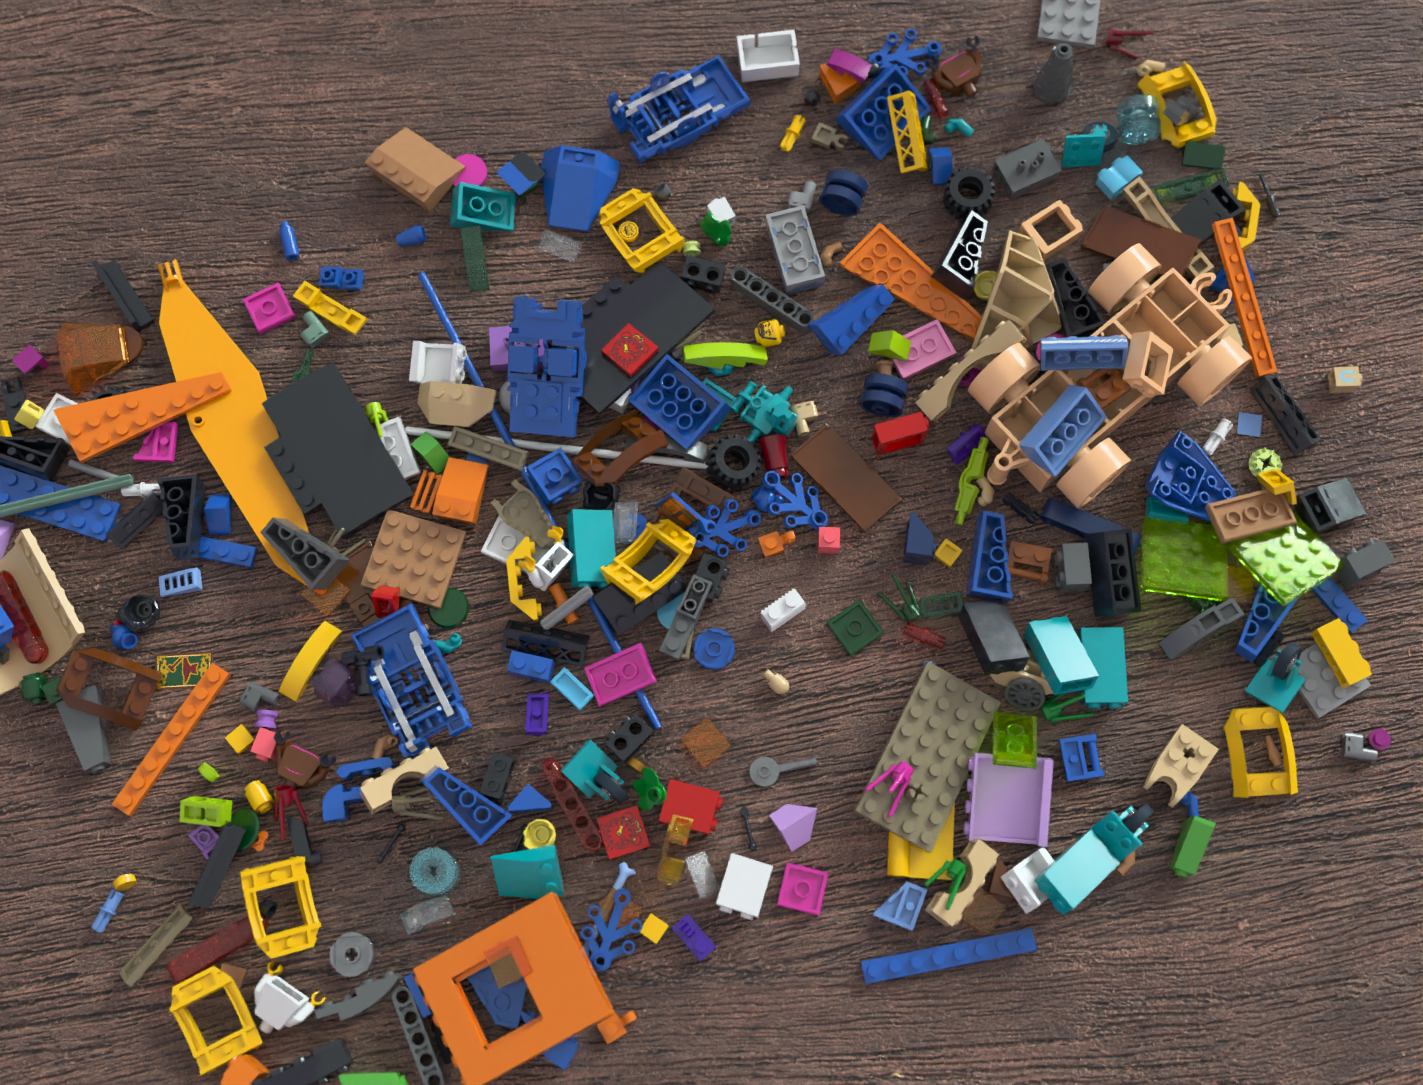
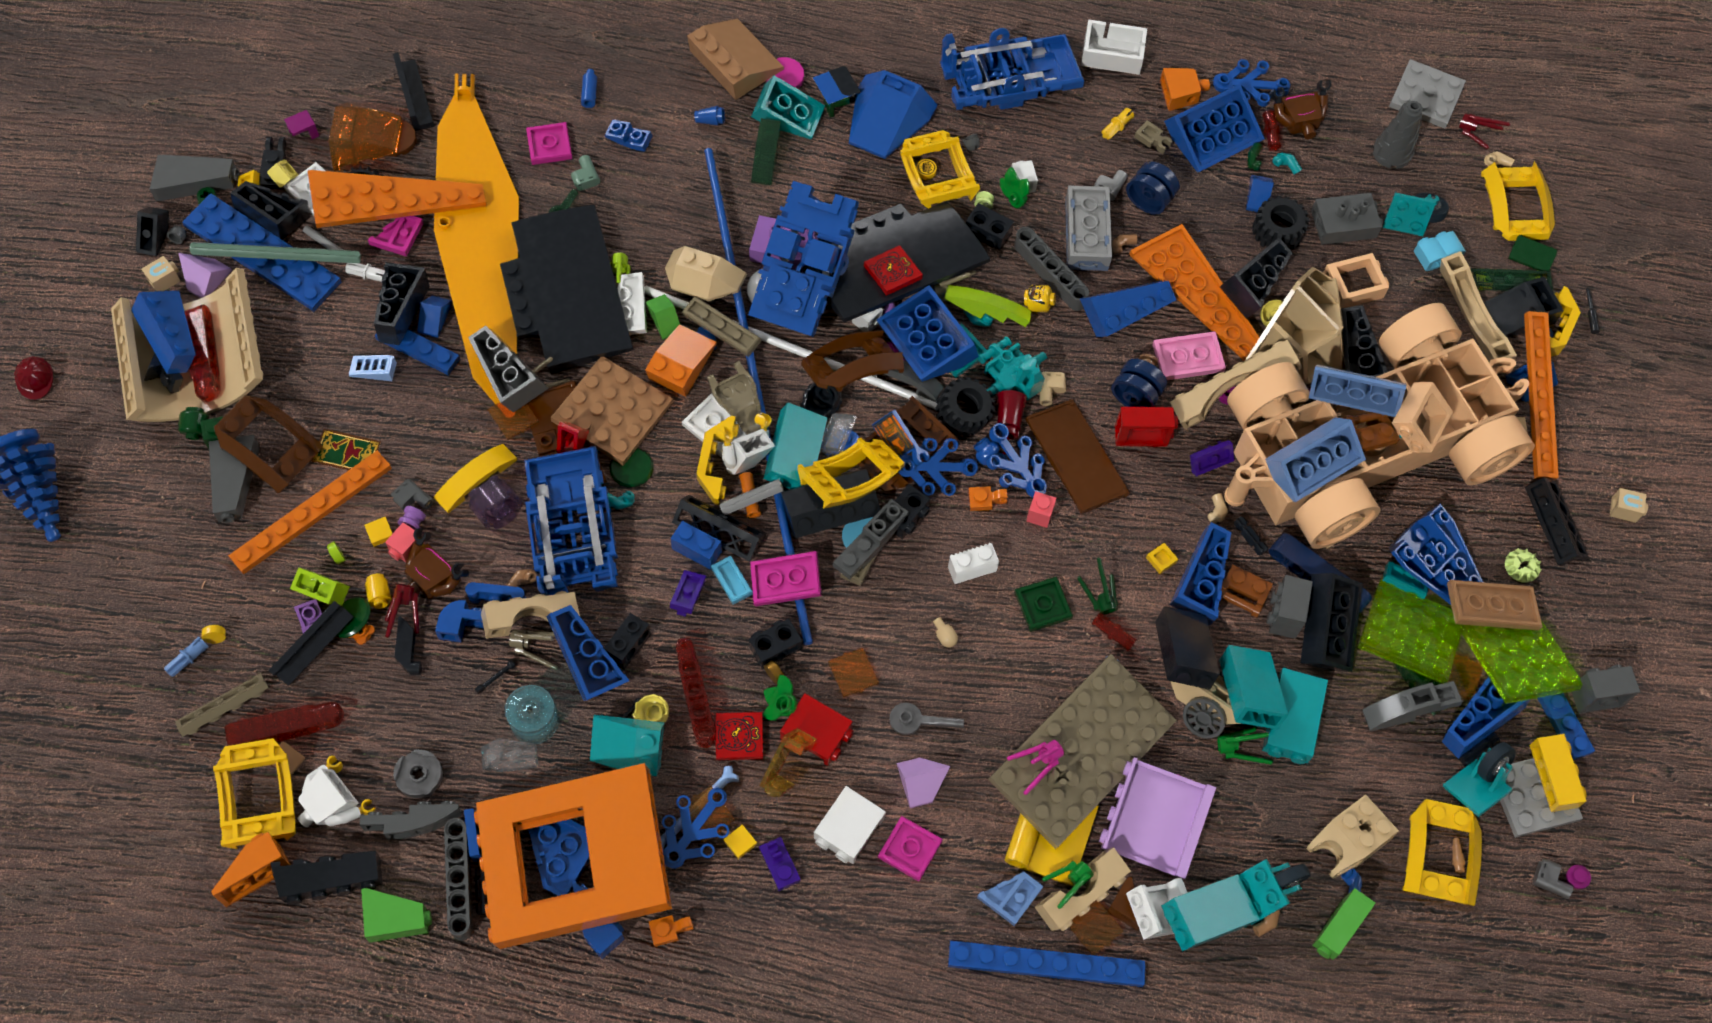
camera: 10 degrees right, 10 degrees down
(122, 637) = (298, 399): blue animal -> none
(134, 612) = (318, 381): black hair -> none
(136, 520) = (349, 297): black plate -> none
(267, 908) = (348, 702): black hinge -> none
(274, 875) = (370, 668): yellow wedge -> none
(329, 309) = (606, 158): yellow slope -> none
(363, 660) = (528, 486): black bar -> none
(420, 508) = (655, 339): orange tile -> none
(437, 362) = (697, 232): white panel -> none
(508, 962) = (577, 821): clear orange piece -> none
(529, 801) = (651, 675): blue slope -> none
(554, 477) = (779, 371): blue plate -> none
(560, 245) = (853, 164): clear slope -> none
(592, 769) = (728, 666): teal plate -> none
(702, 875) = (808, 802): clear slope -> none
(714, 649) = (890, 583): blue tile -> none
(744, 811) = (872, 752): black hinge -> none
(811, 97) = (1146, 96): black hinge -> none
(845, 62) = (1189, 69): magenta slope -> none
(874, 70) = (1216, 87): black hinge -> none
(890, 345) = (1159, 340): lime slope -> none
(915, 133) = (1241, 154): yellow fence -> none
(918, 542) = (1134, 536): dark blue slope -> none
(942, 597) = (1152, 601): clear green slope -> none
(974, 471) = (1201, 504): lime piece -> none
(1014, 740) = (1180, 756): clear neon green slope -> none
(1074, 759) = (1239, 801): blue plate -> none
(1118, 231) = (1471, 320): reddish brown door -> none
(1138, 119) = (1474, 200): clear light blue wheel -> none
(1182, 109) = (1521, 202): dark grey slope -> none
(1217, 436) = (1478, 523): white axle -> none
(1249, 424) = (1515, 523): medium blue sticker -> none
(1278, 483) = (1532, 582): yellow panel -> none
(1329, 506) = (1580, 623): black slope -> none

